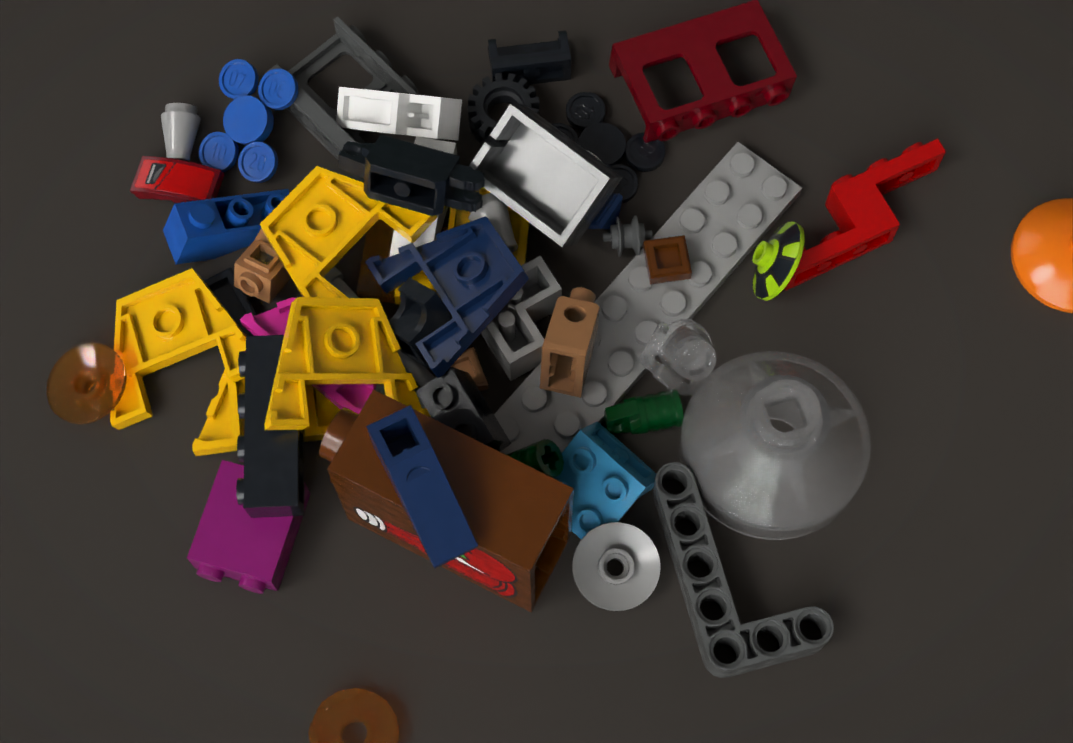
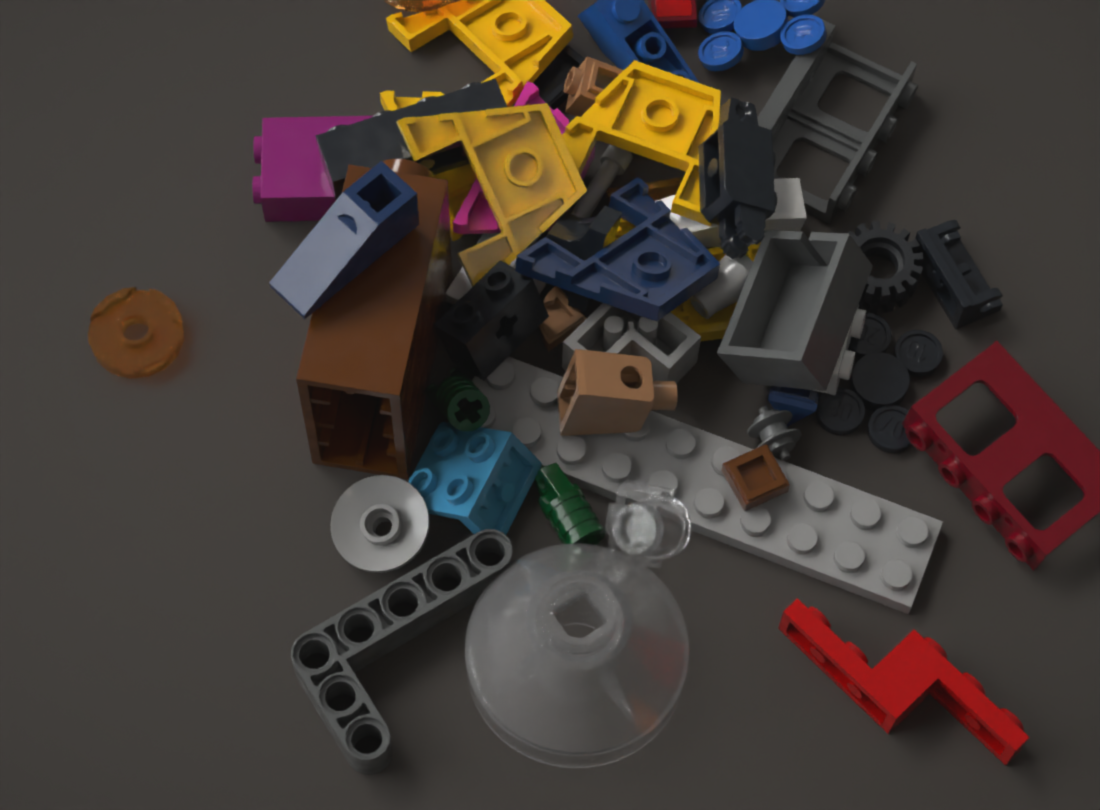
camera: 70 degrees right, 5 degrees down
(399, 113) = (821, 157): white slope -> none
(777, 260) = (796, 586): dish -> none

